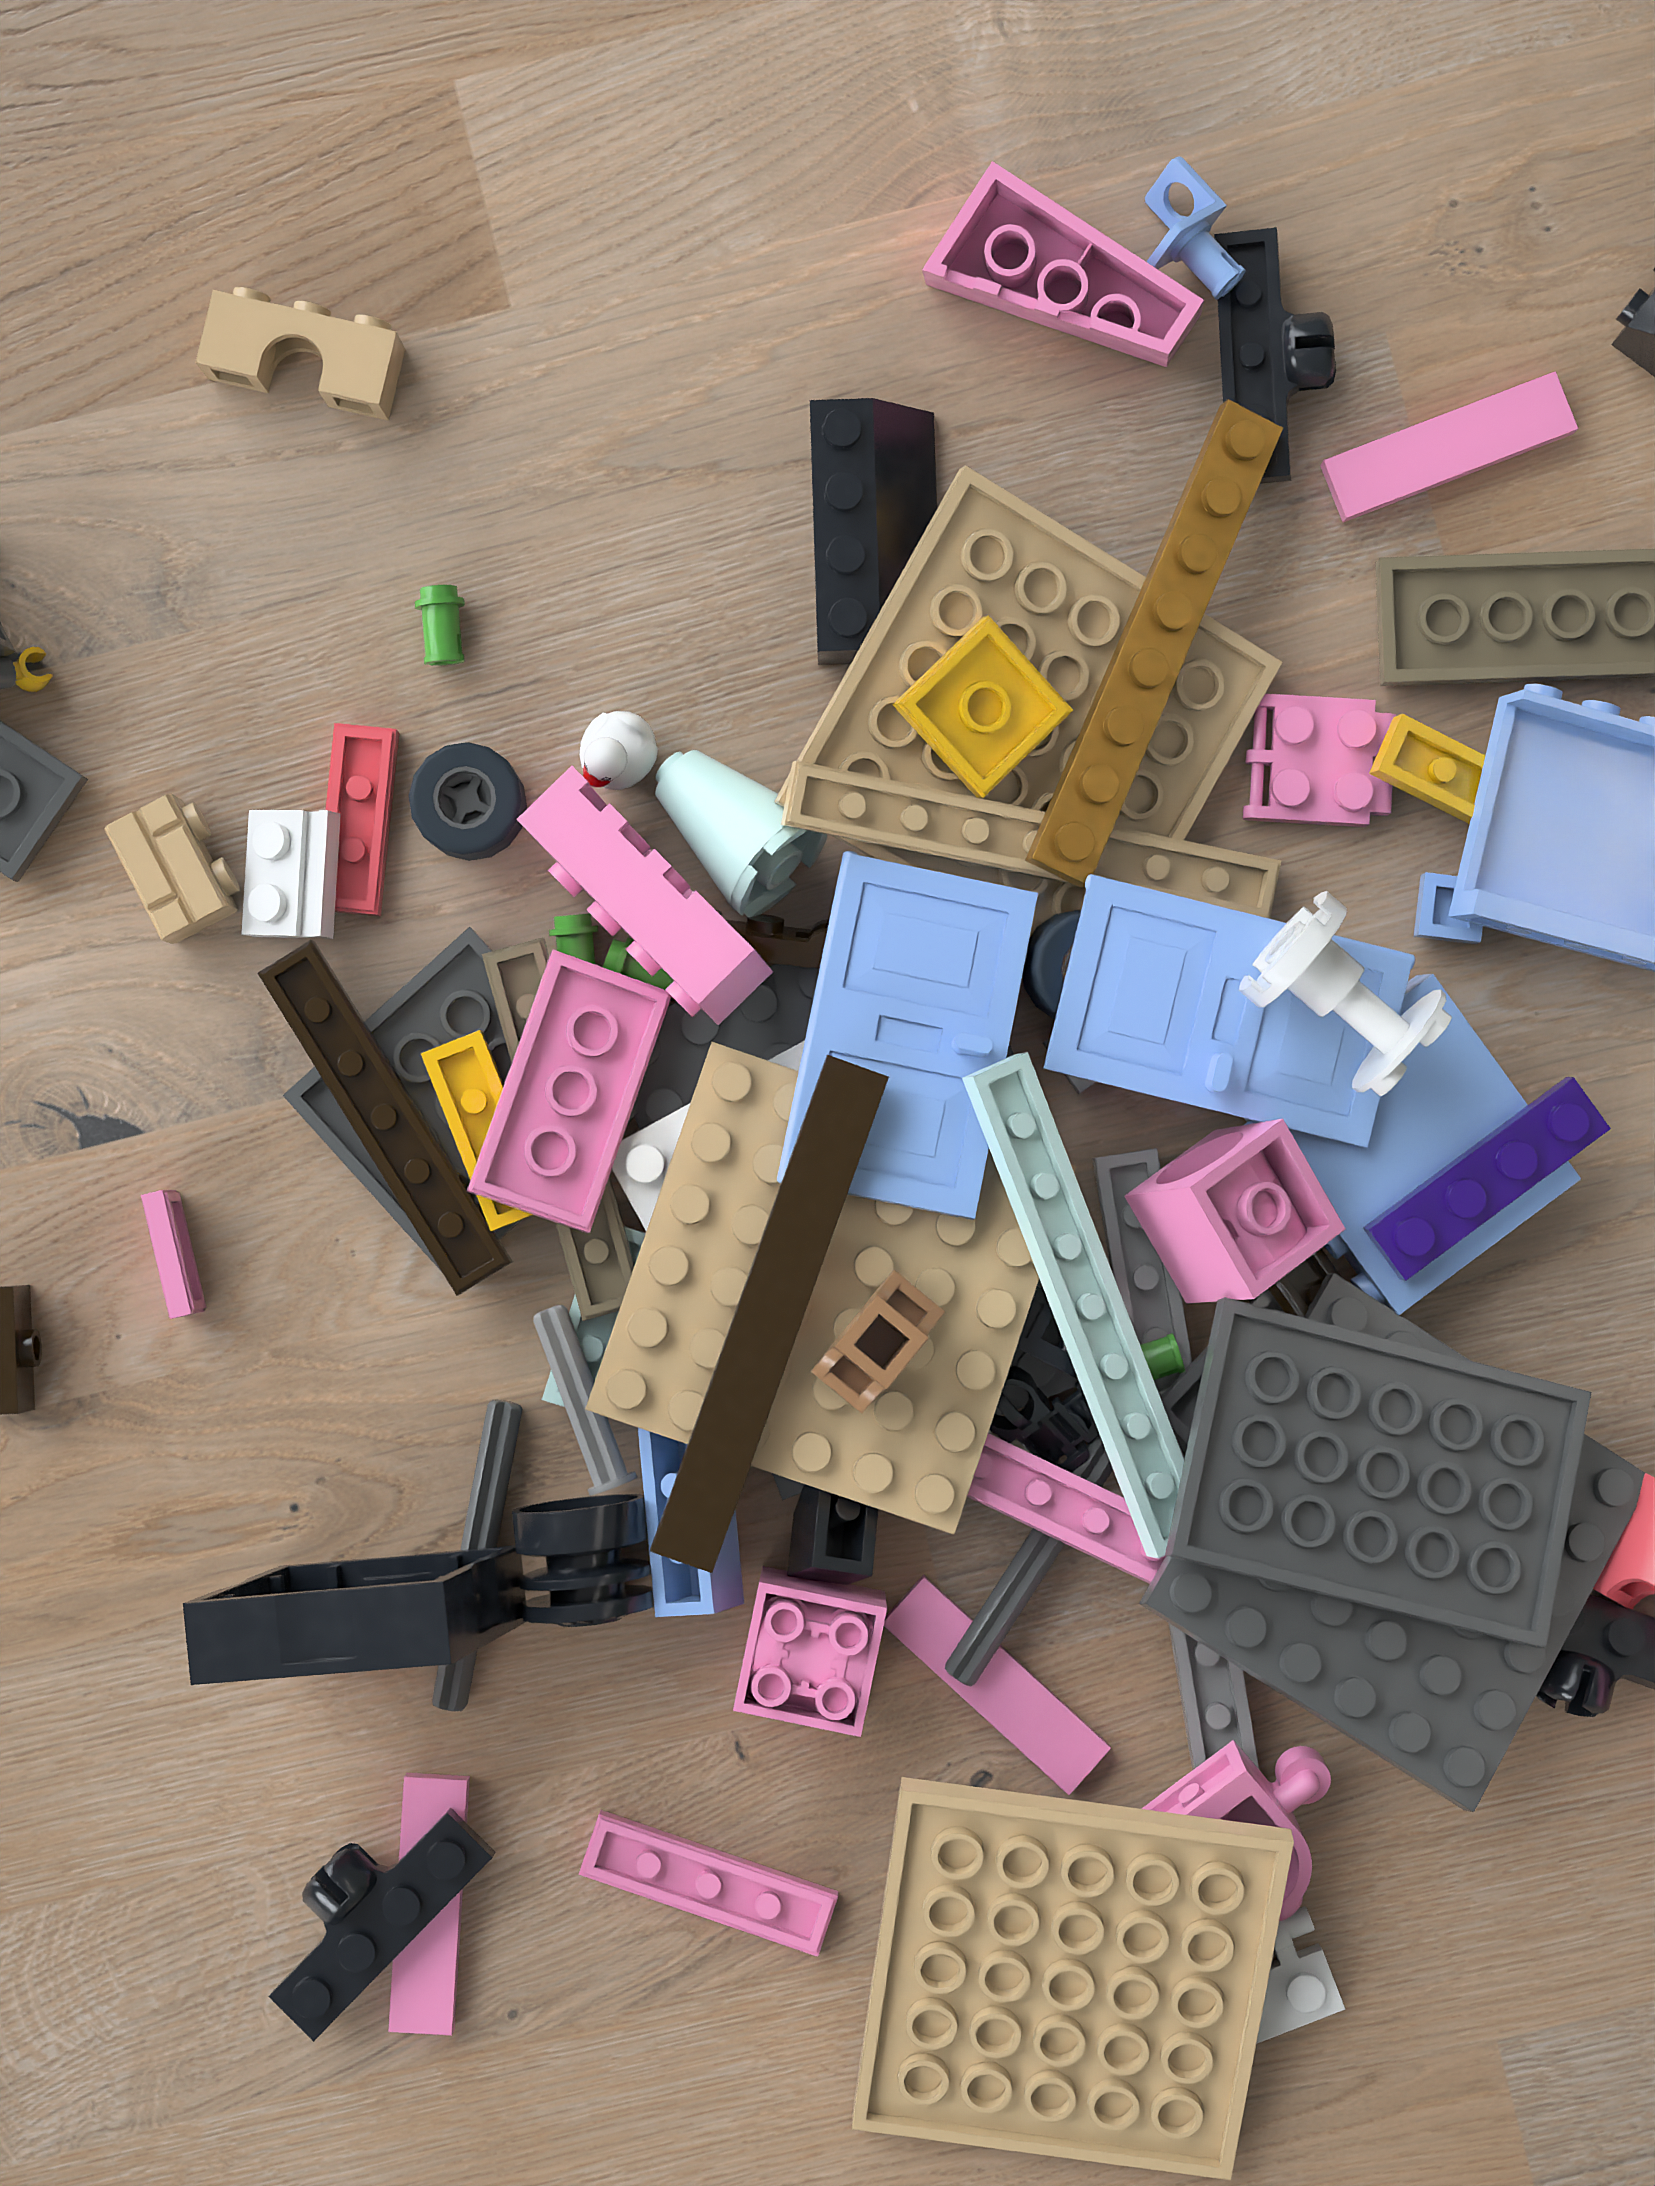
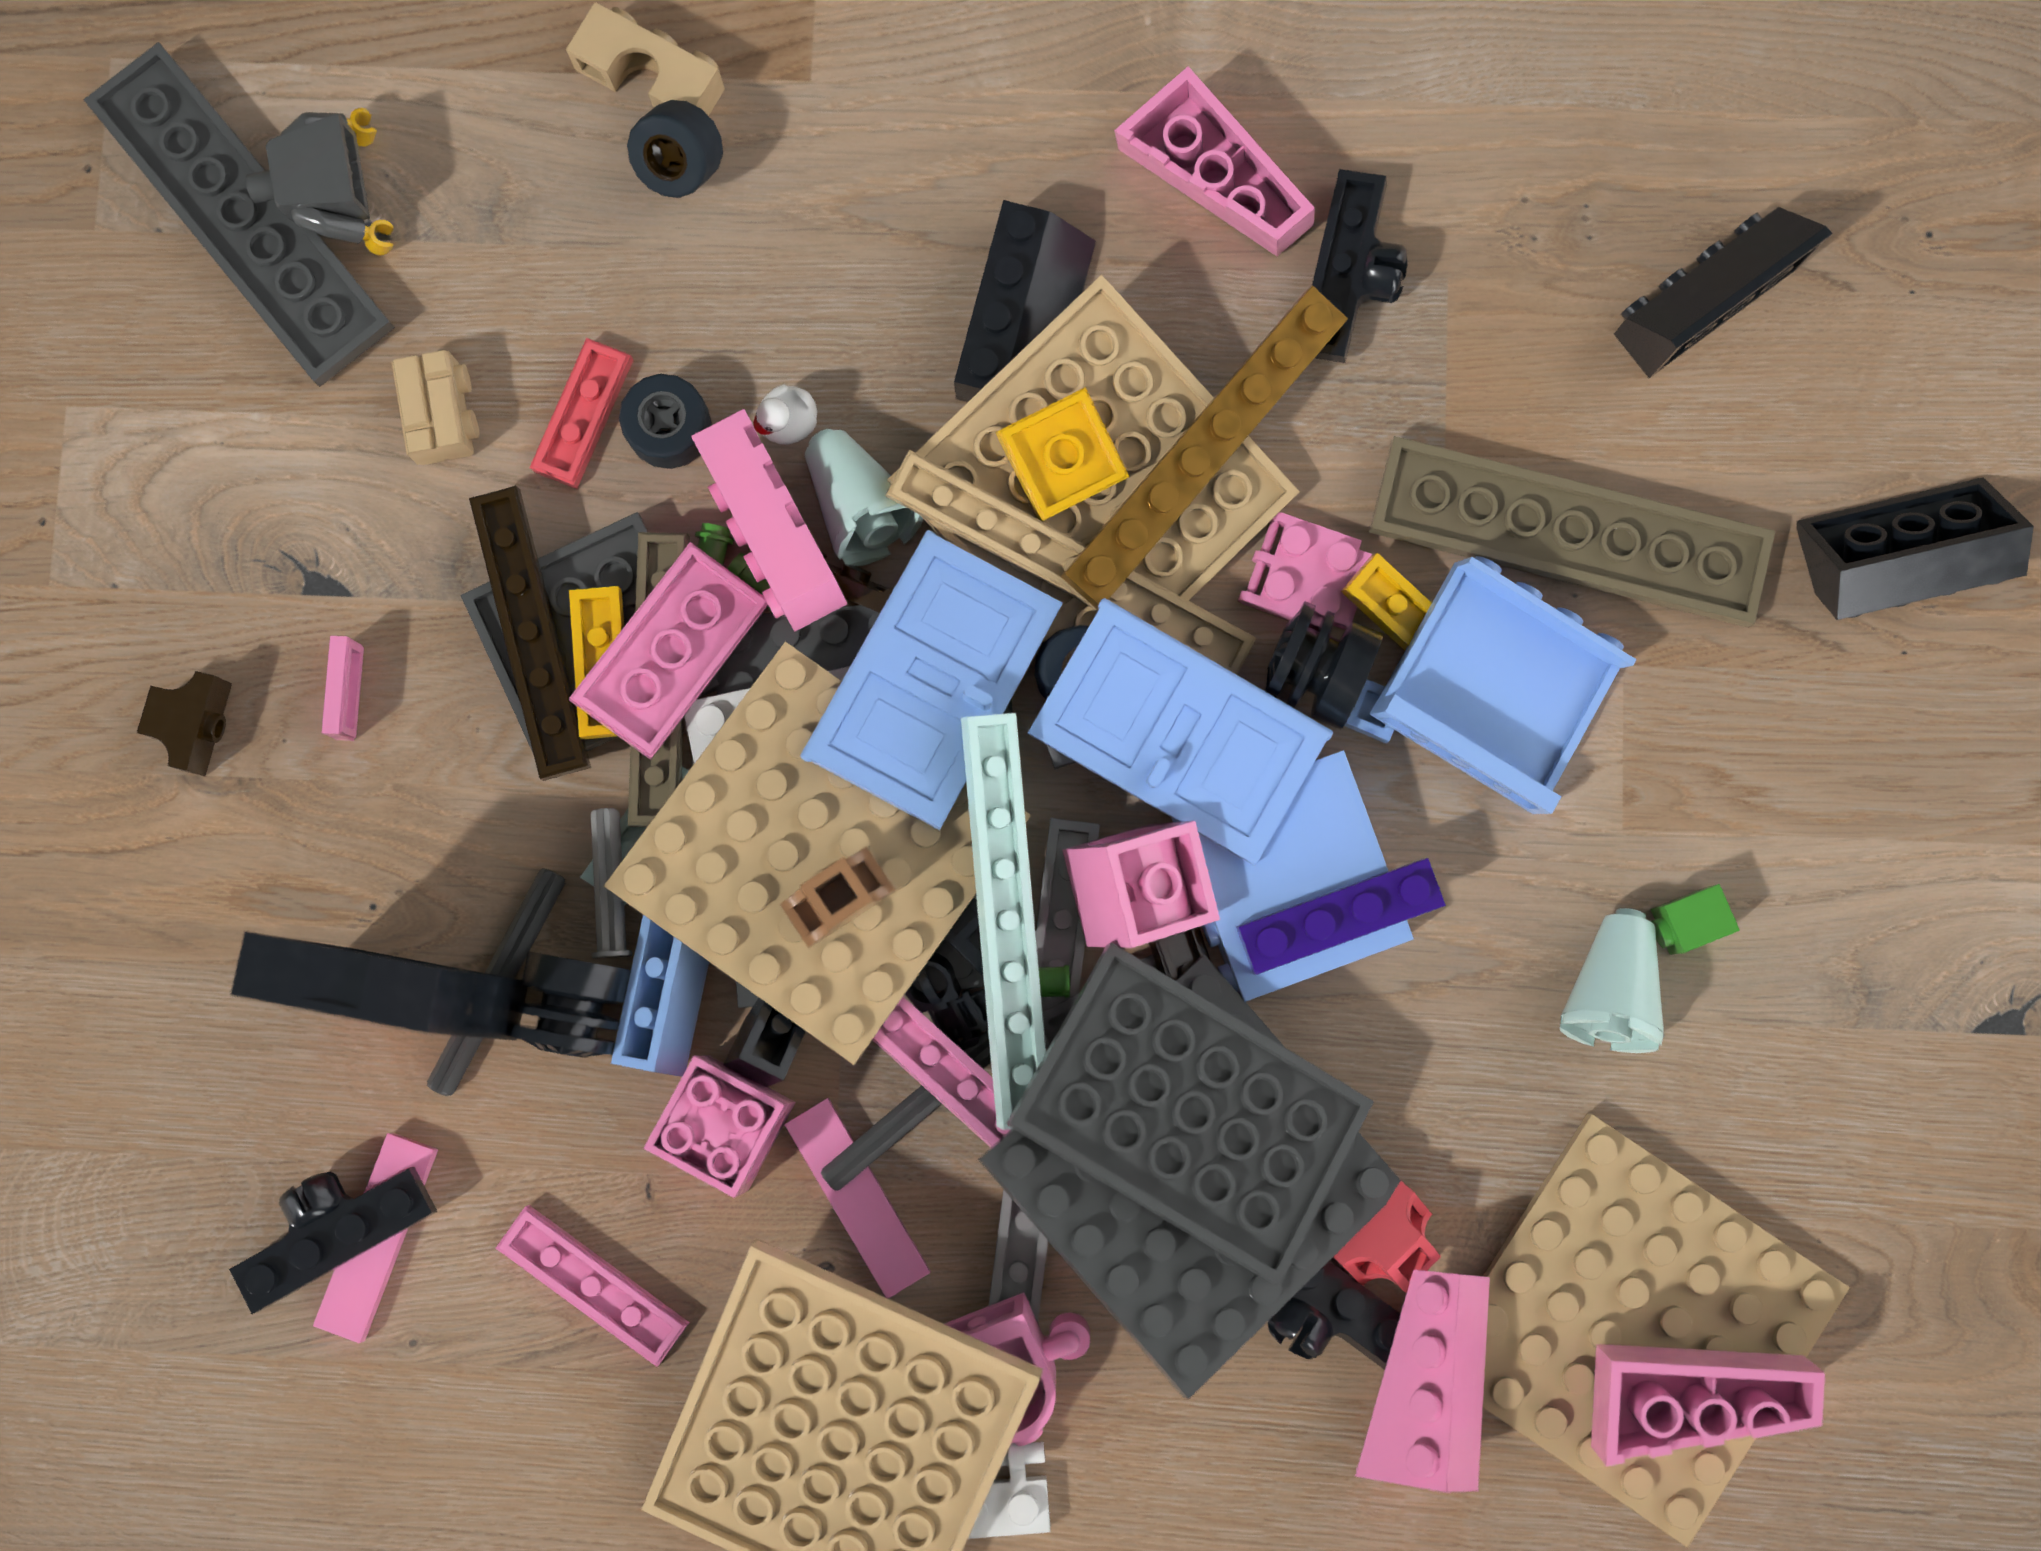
camera: 15 degrees right, 5 degrees down
(291, 874) = (519, 436): white plate -> none
(374, 451) = (675, 148): none -> black wheel
(441, 624) = (687, 289): bright green pin -> none
(769, 1313) = (761, 853): dark brown tile -> none
(1190, 235) = (1320, 162): light blue bracket -> none
(1328, 978) = (1257, 722): white piece -> none
(1385, 875) = (1323, 664): none -> black wheel
(1449, 446) = (1470, 372): bright pink tile -> none

